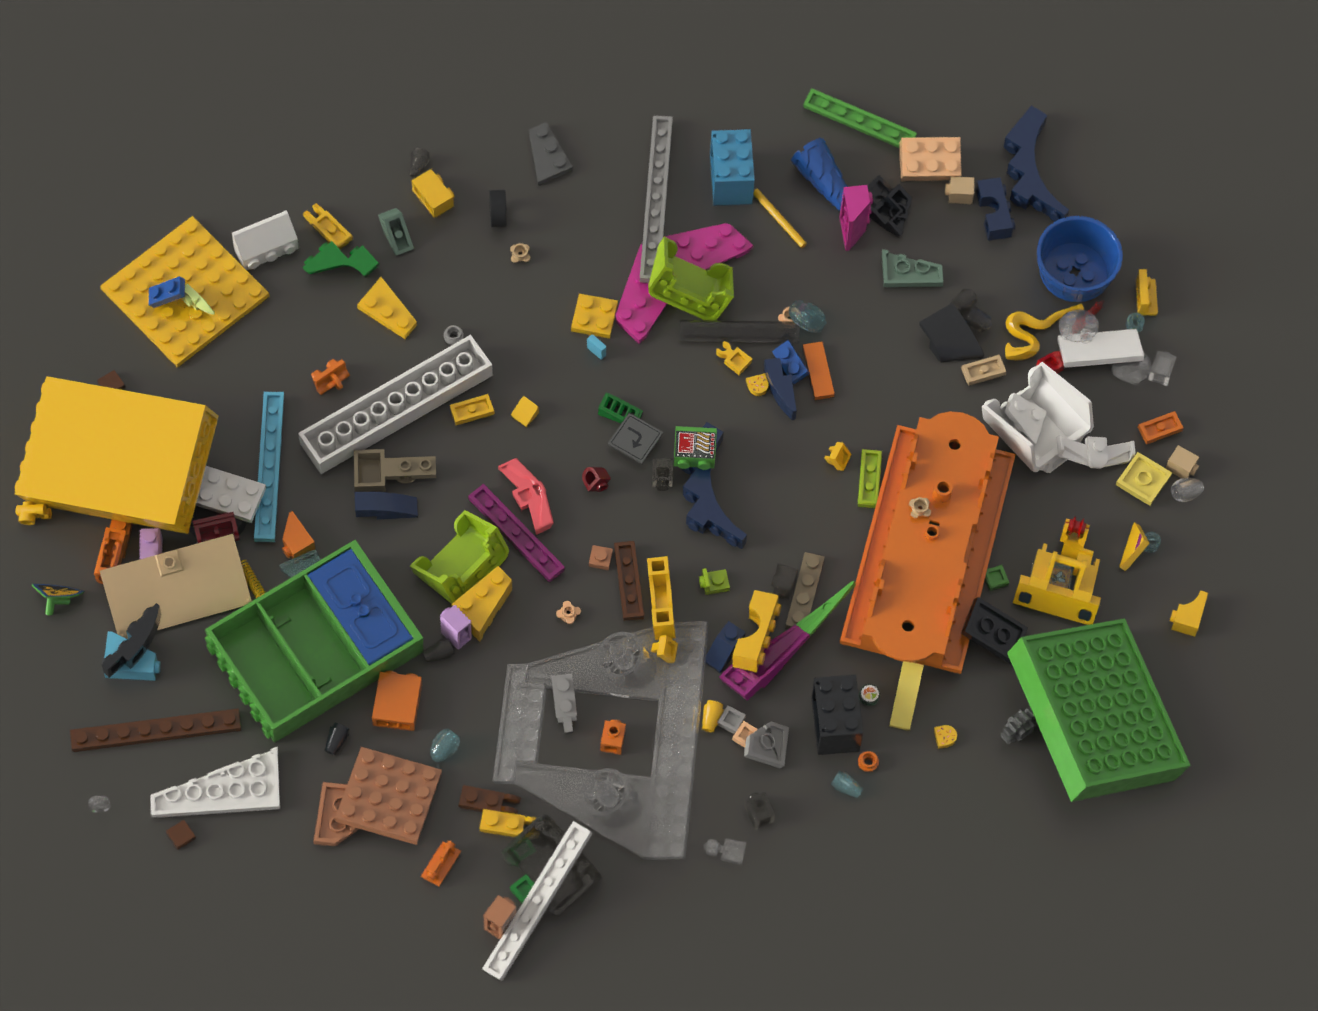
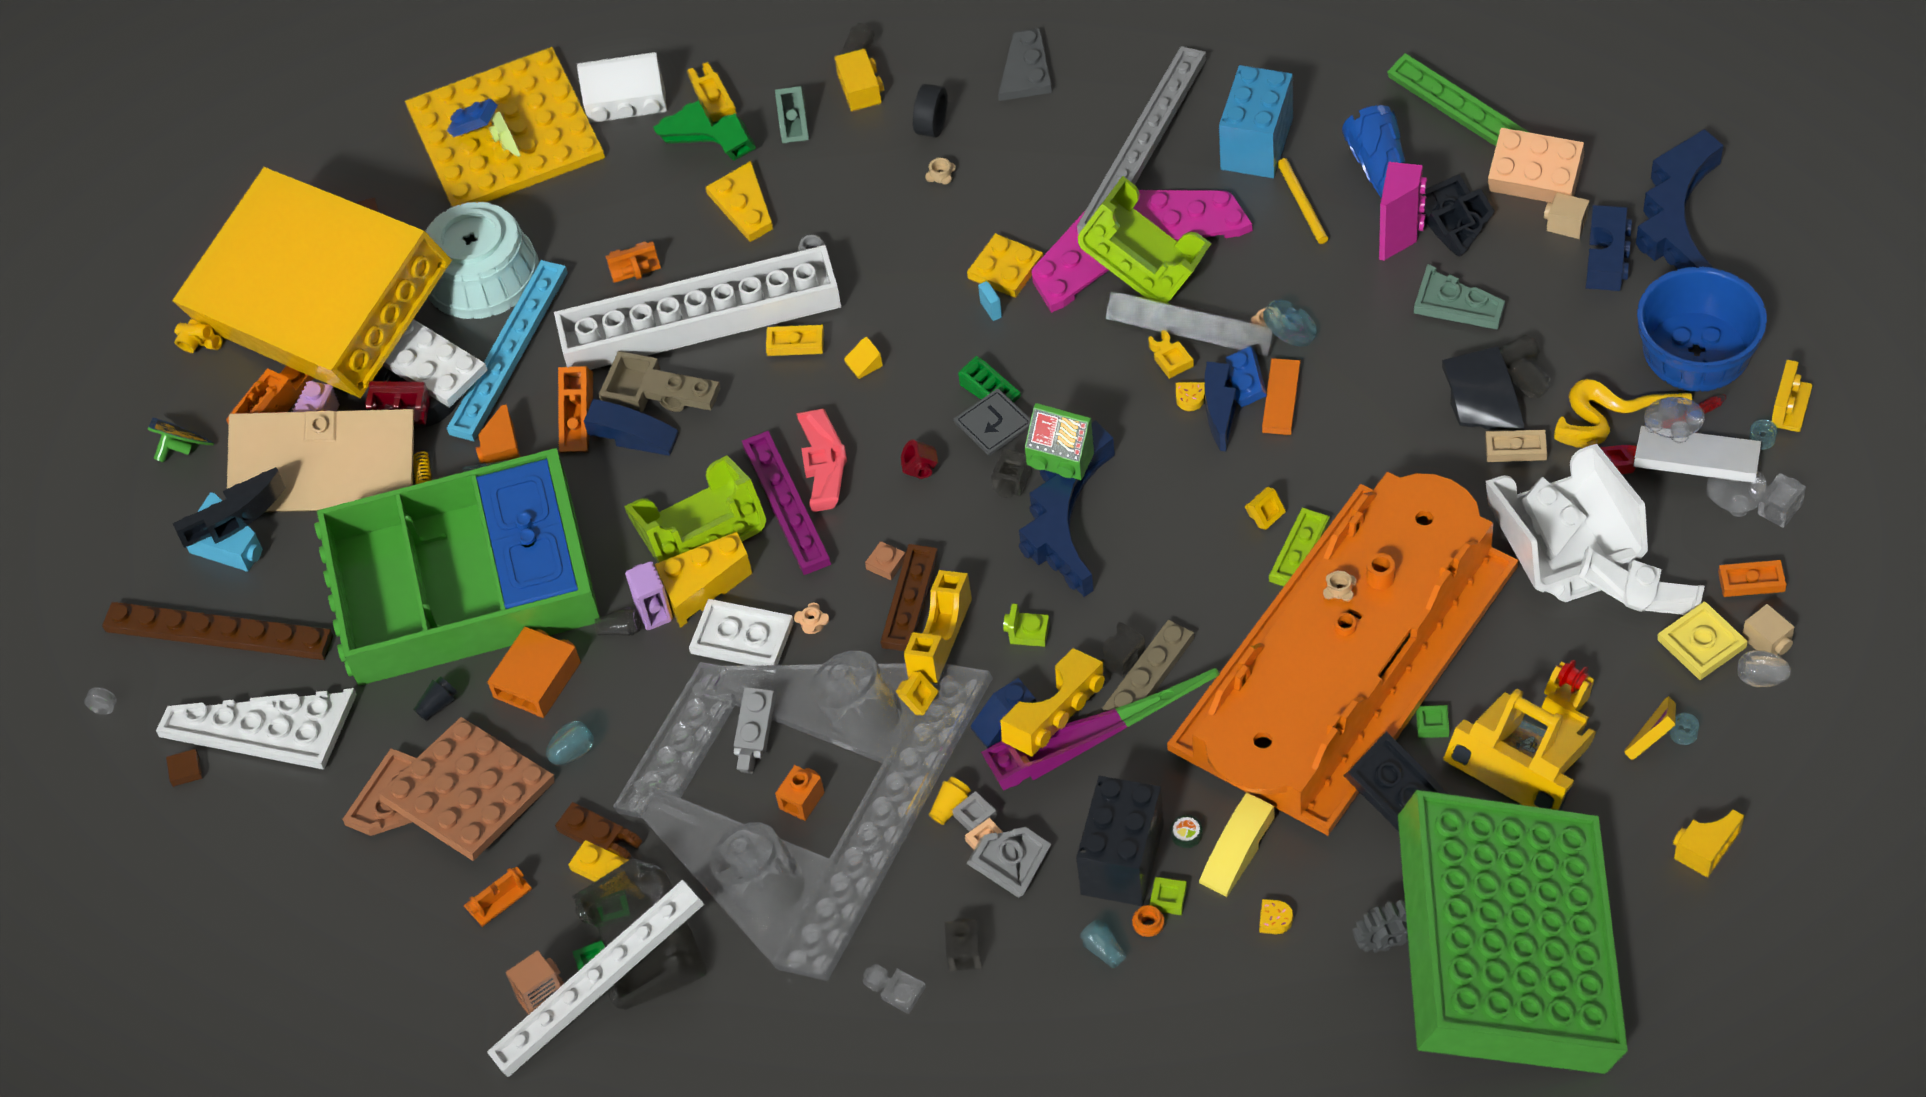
camera: 30 degrees right, 10 degrees down
(236, 406) = (487, 273): none -> light aqua piece
(339, 501) = (574, 400): none -> orange slope
(526, 636) = (741, 634): none -> white plate
(874, 740) = (1169, 895): none -> lime tile

